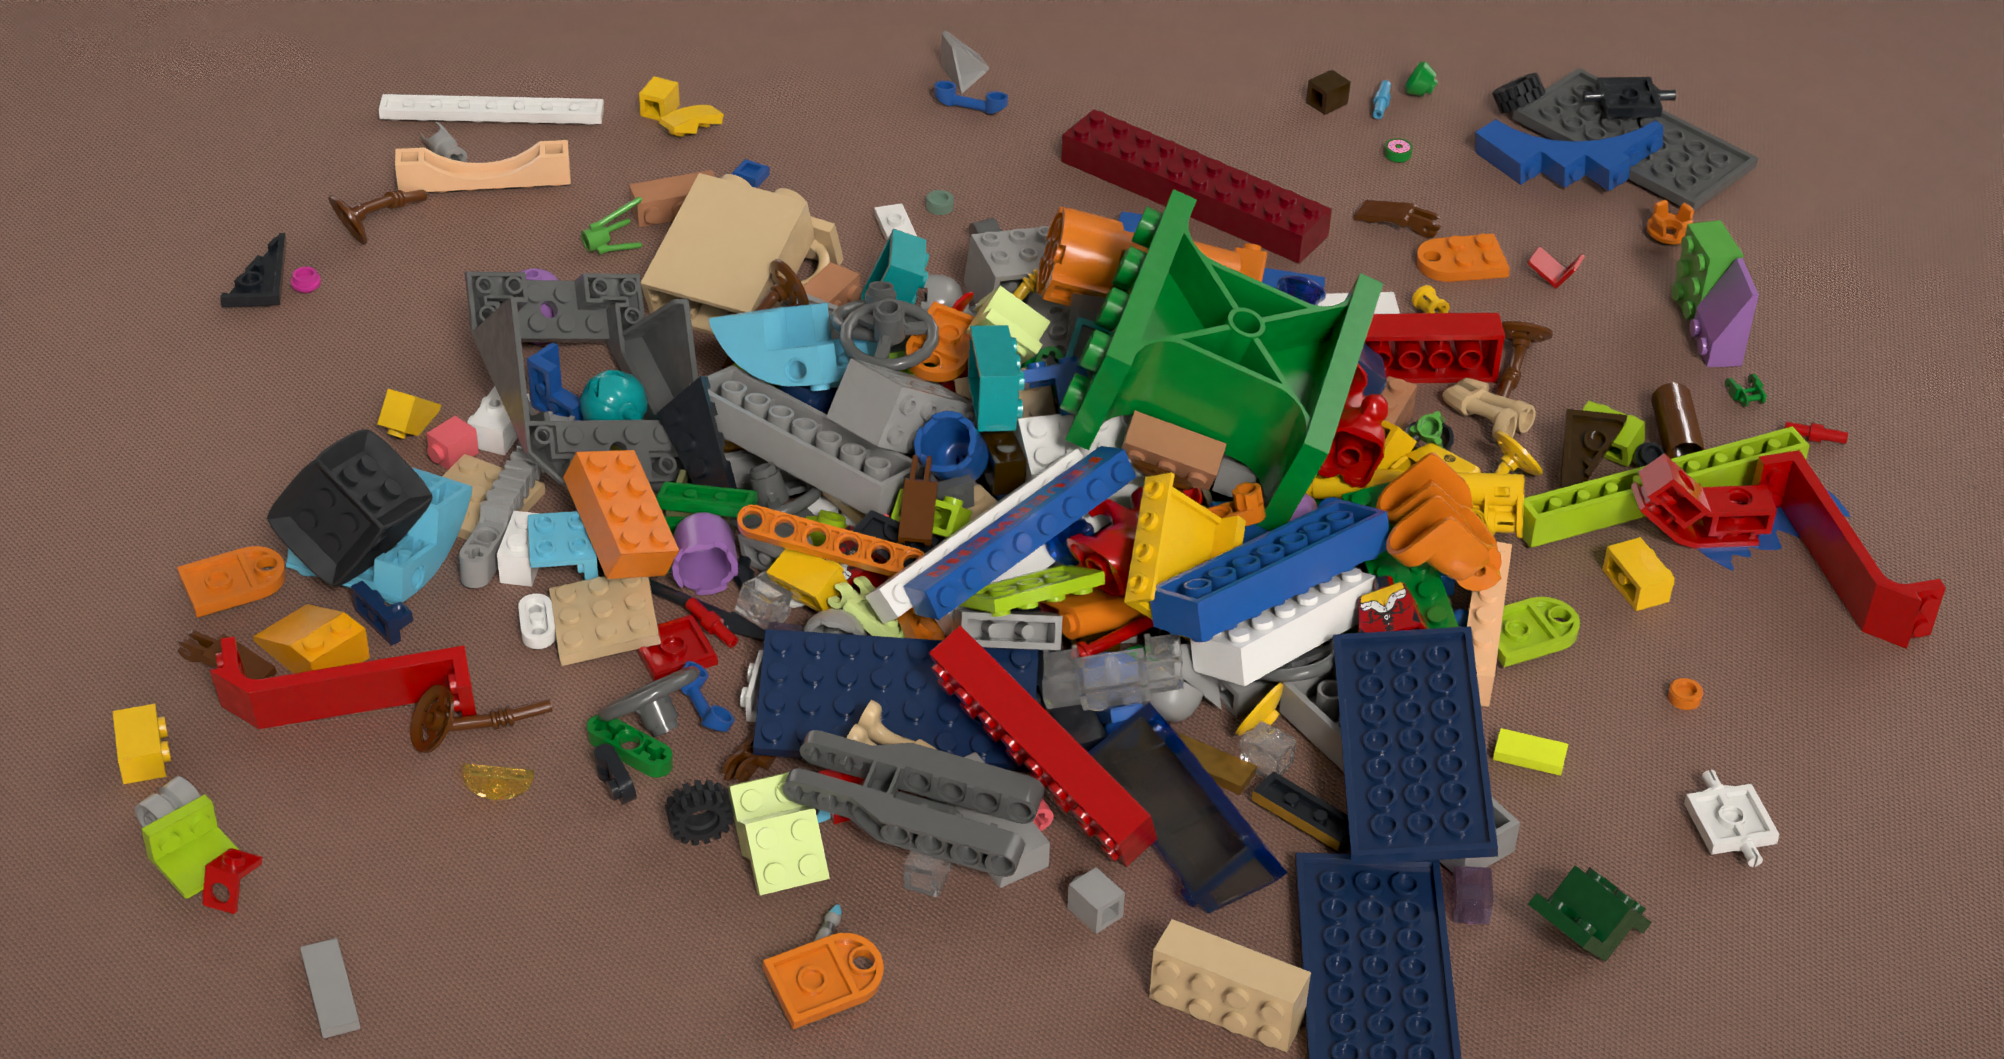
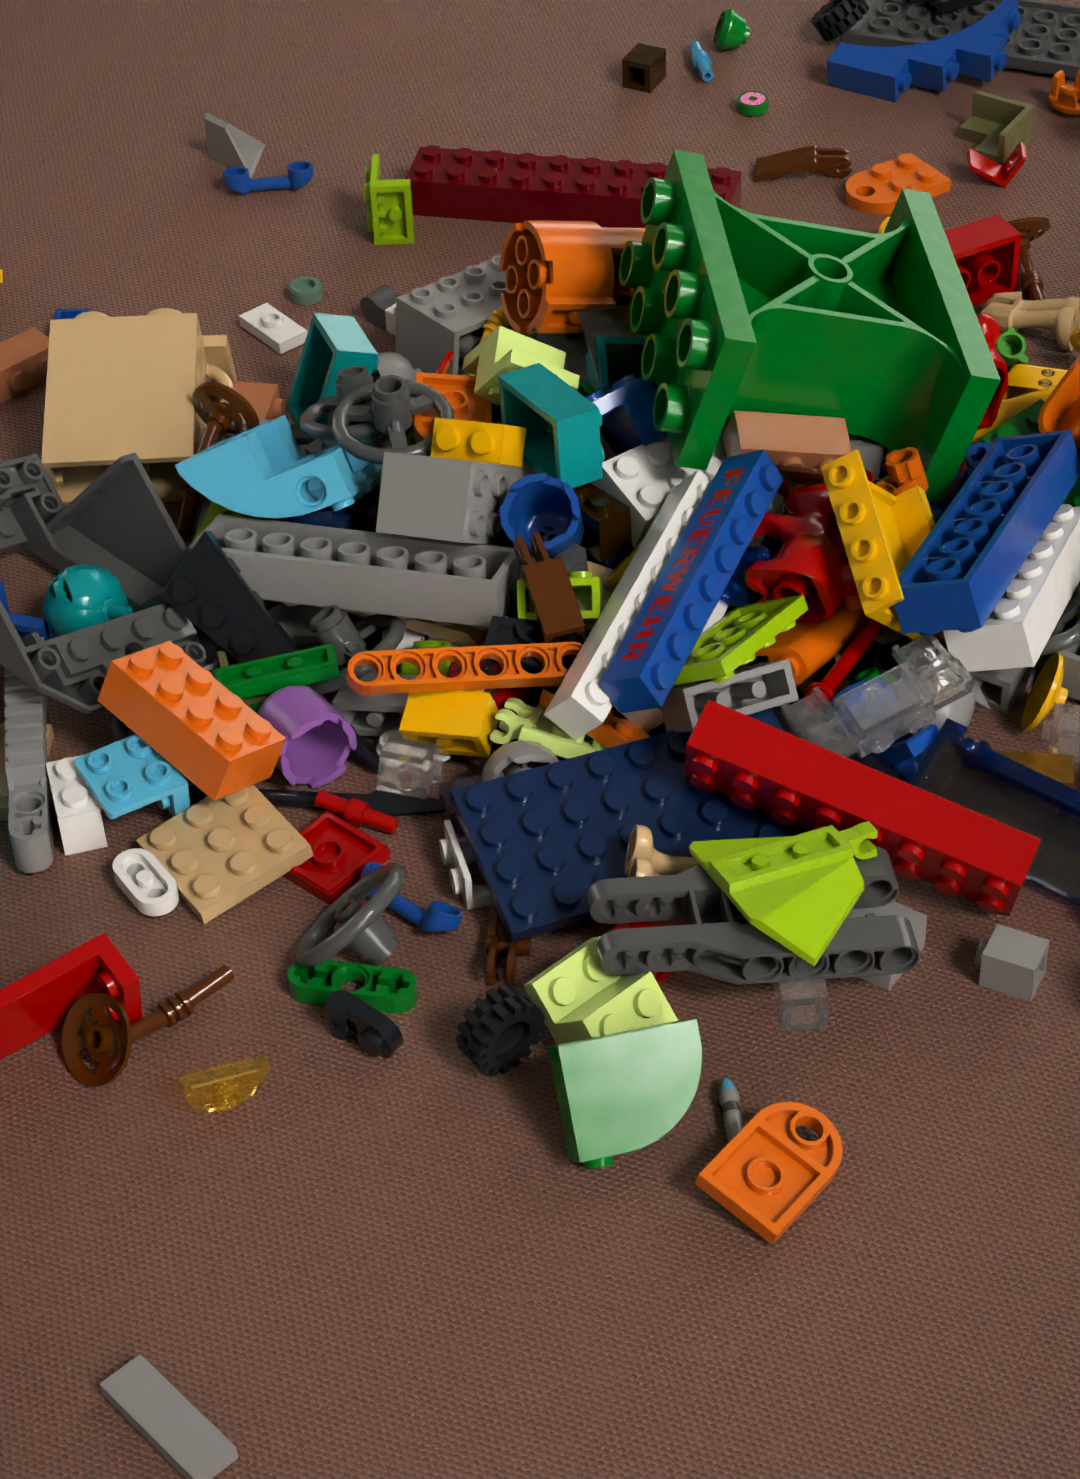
camera: 20 degrees left, 0 degrees up
(751, 882) = (625, 1088): none -> brick
(935, 372) = (478, 441): none -> yellow brick
(948, 782) = (792, 885): none -> lime panel
(1037, 151) = (389, 207): none -> lime bracket
(1581, 233) = (997, 125): none -> olive panel

